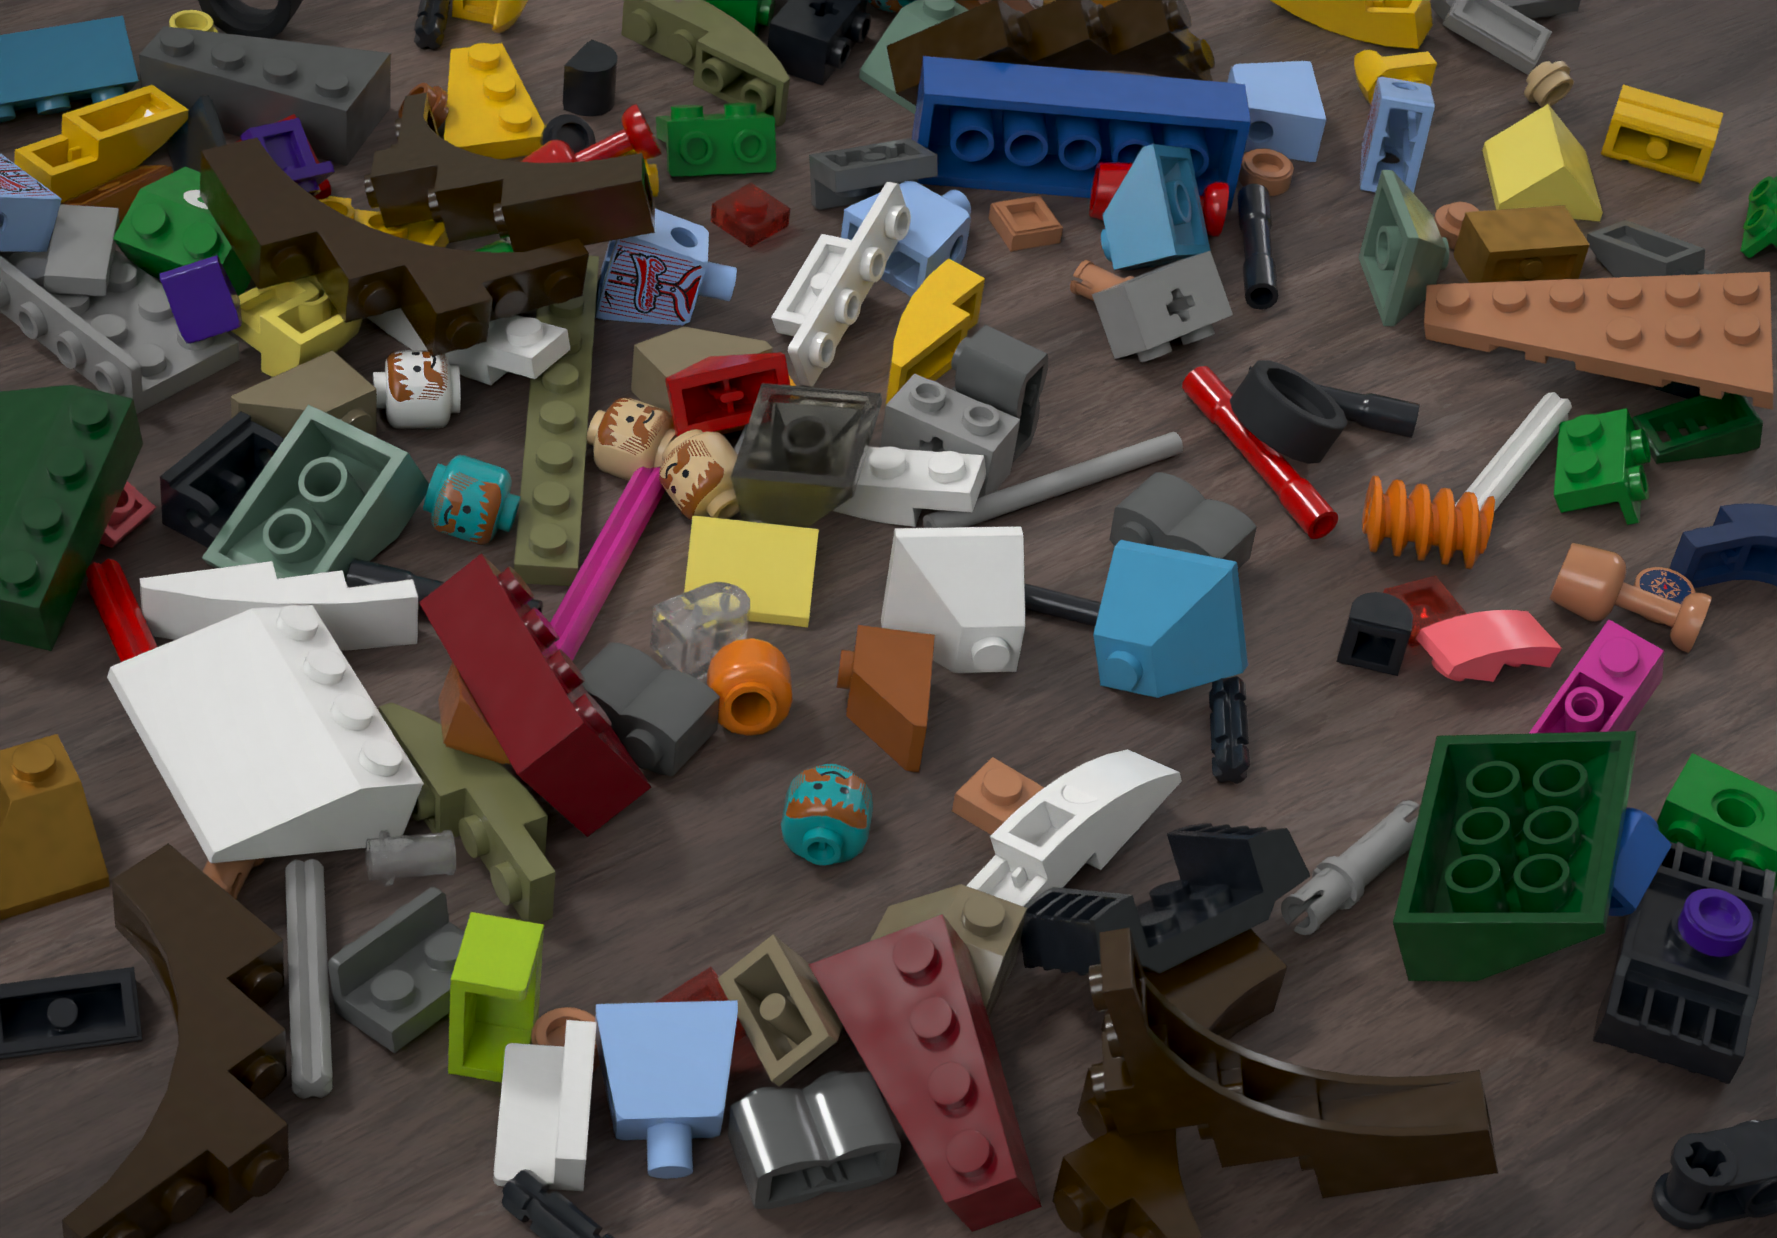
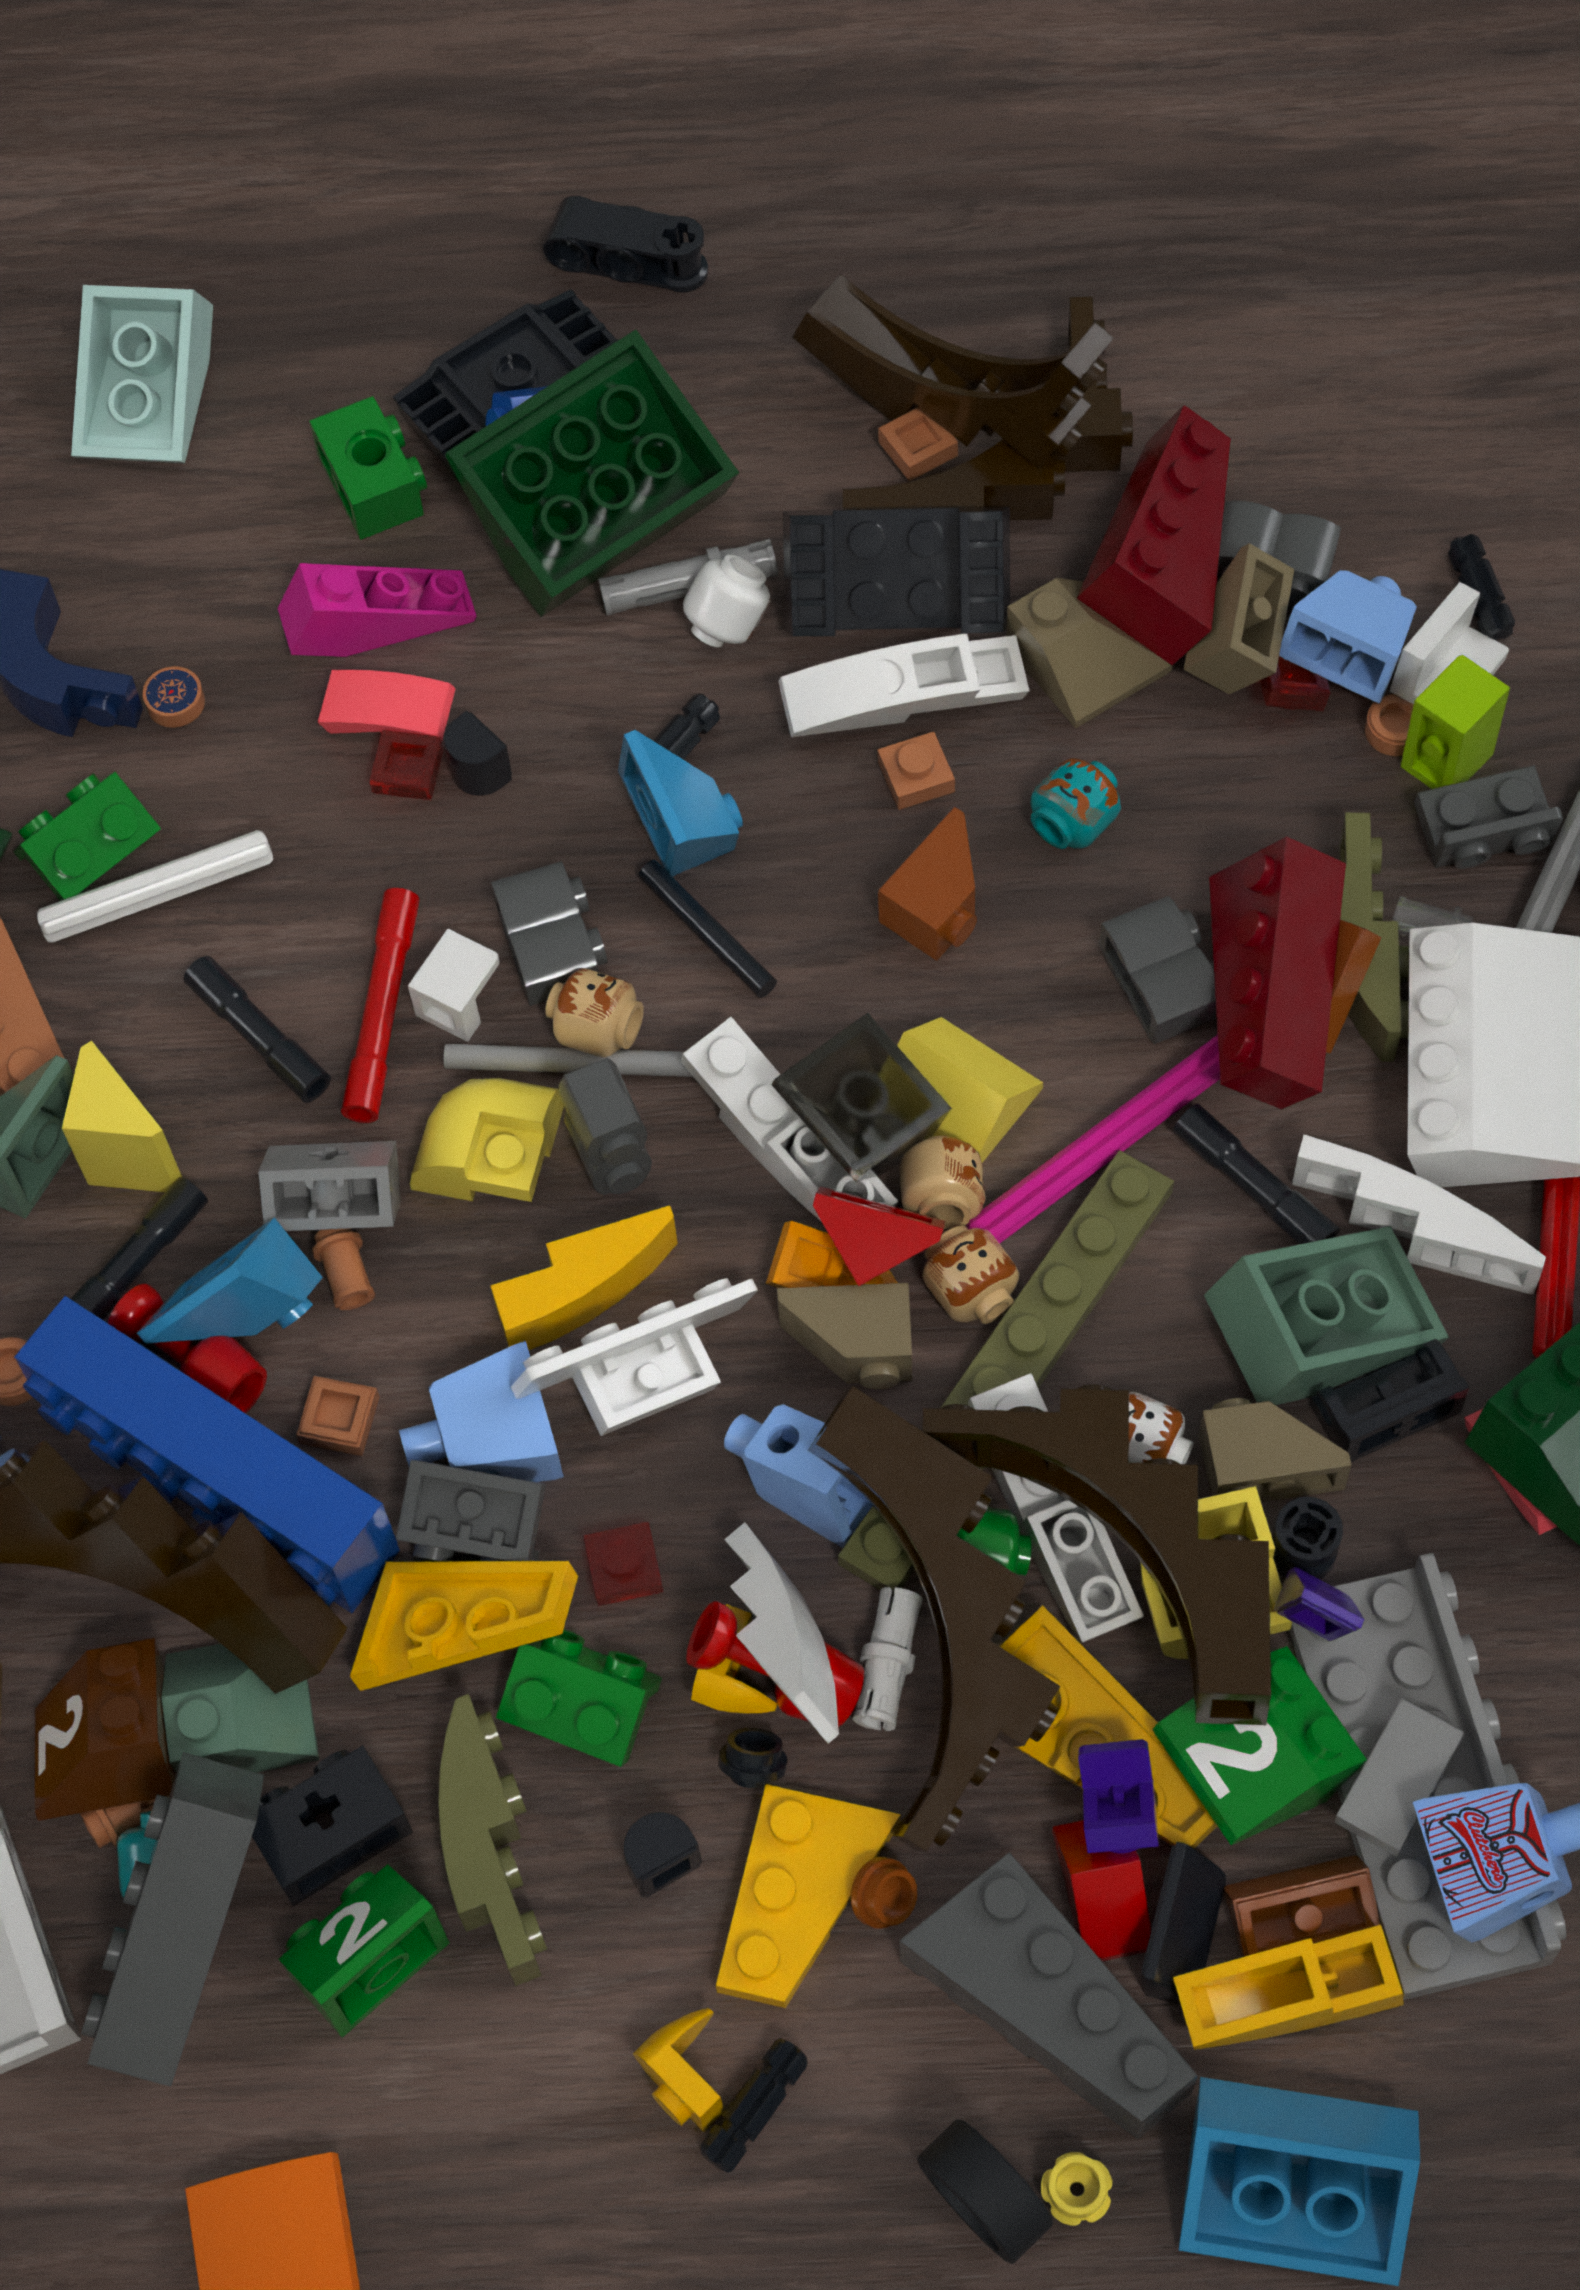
camera: 135 degrees left, 20 degrees up
(239, 362) = (1305, 1549): none -> black wheel
(471, 500) = (1175, 1260): teal head -> none
(572, 109) = (784, 1634): none -> white slope
(698, 624) = (1049, 1033): clear leg -> none
(751, 685) = (1057, 945): orange head -> none
(827, 122) = (458, 1612): none -> yellow wing
(940, 419) = (680, 1128): light grey brick -> none
(962, 590) = (818, 928): white slope -> none
(1084, 485) = (594, 1013): none -> tan head
(1089, 395) = (488, 1140): none -> light yellow brick
(1215, 459) = (449, 983): none -> white panel
(1288, 412) = (359, 1018): black tyre -> none
(1316, 818) = (726, 601): none -> white head
(1342, 271) = (113, 1131): none -> light yellow slope
(1427, 523) = (320, 832): orange piece -> none
(1594, 582) = (236, 706): nougat piece -> none
(1715, 922) = (505, 354): dark purple tile -> none

